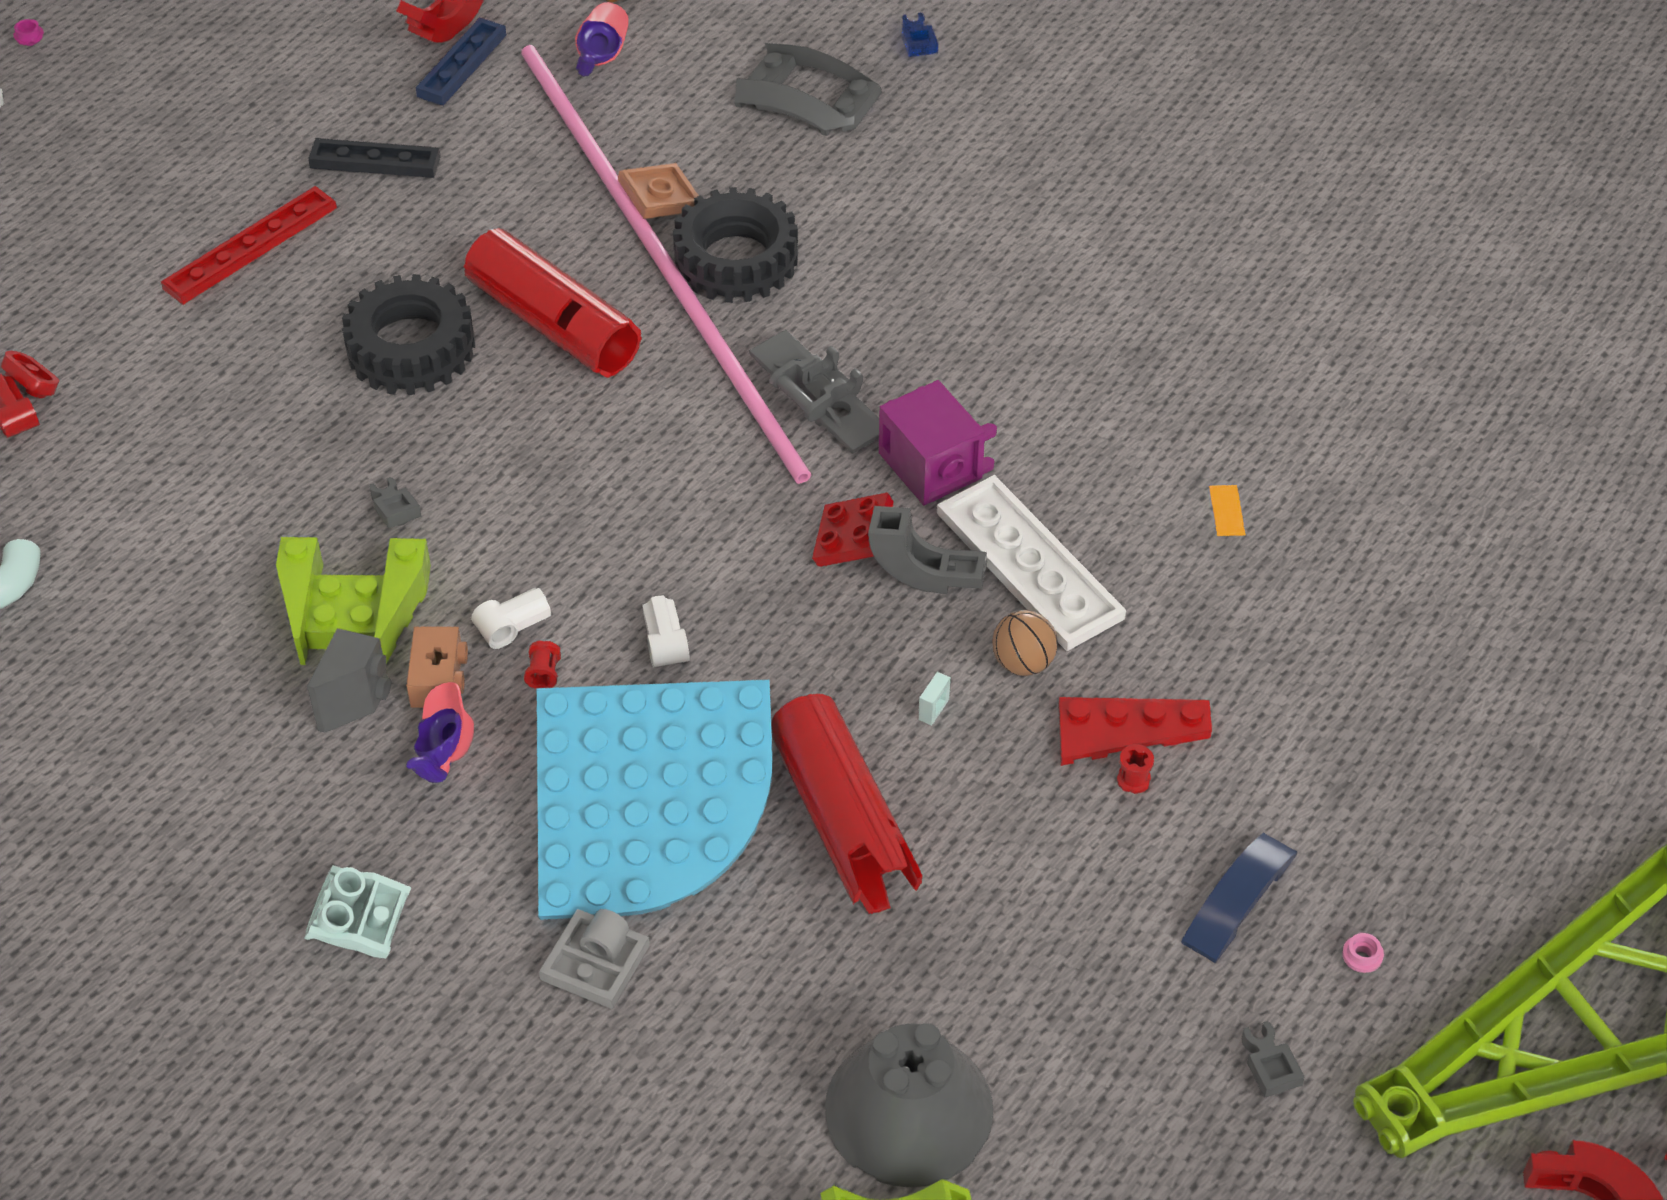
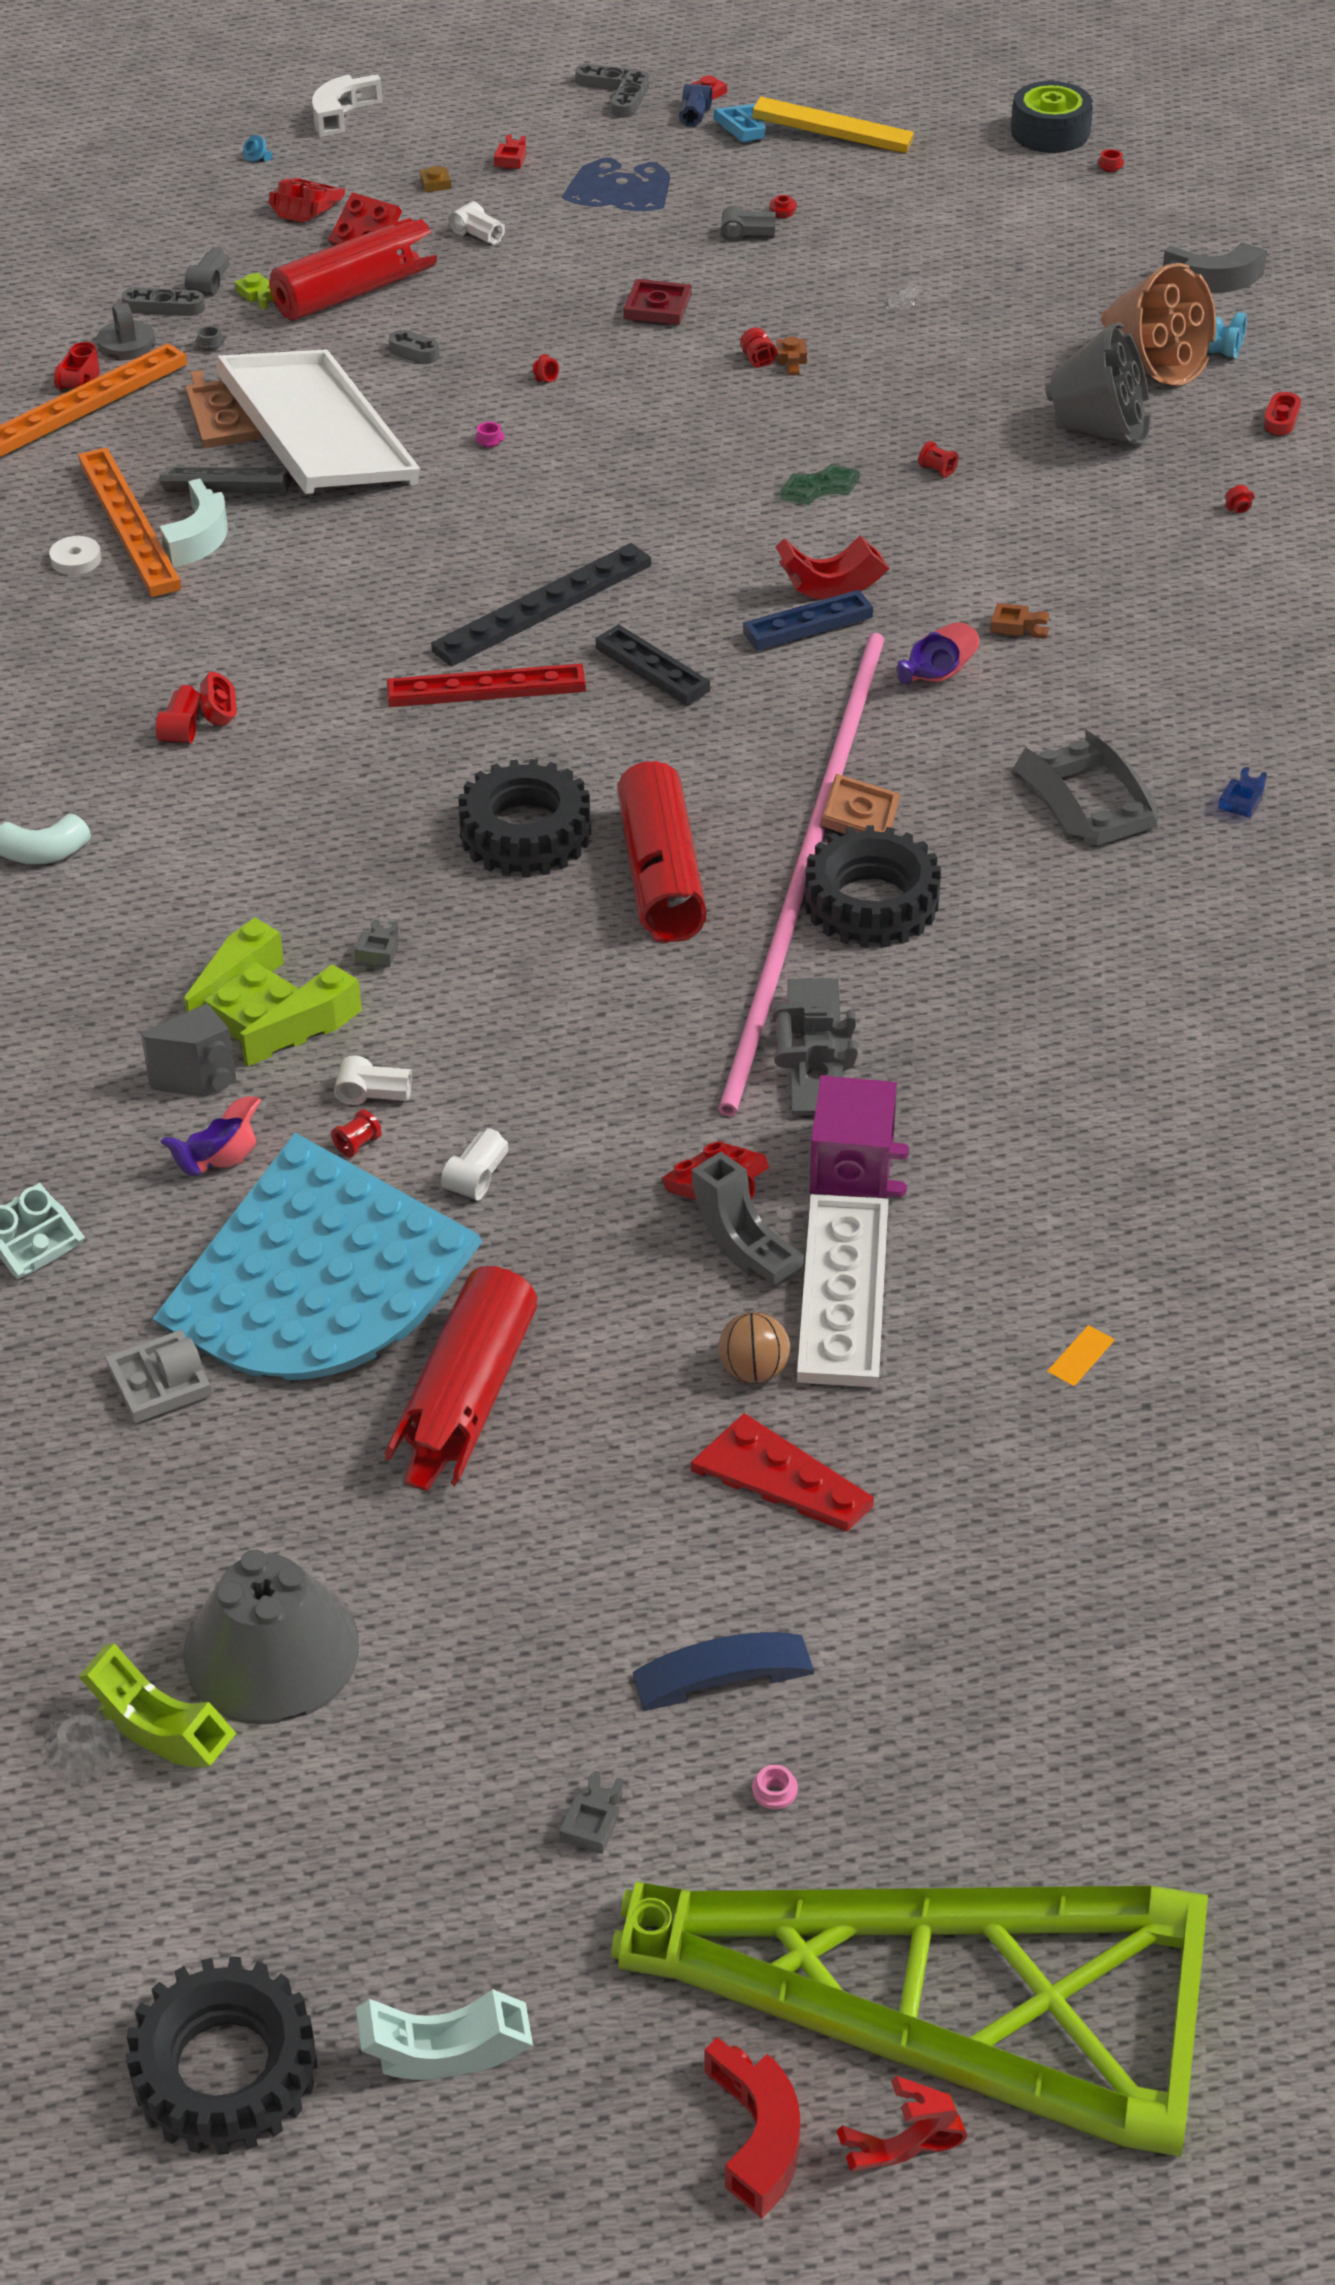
camera: 40 degrees right, 5 degrees down
(224, 156) = (540, 604): none -> black plate
(435, 661) = (279, 1081): nougat brick -> none
(934, 698) = (634, 1347): light aqua tile -> none
(1135, 768) = (741, 1503): red bush -> none

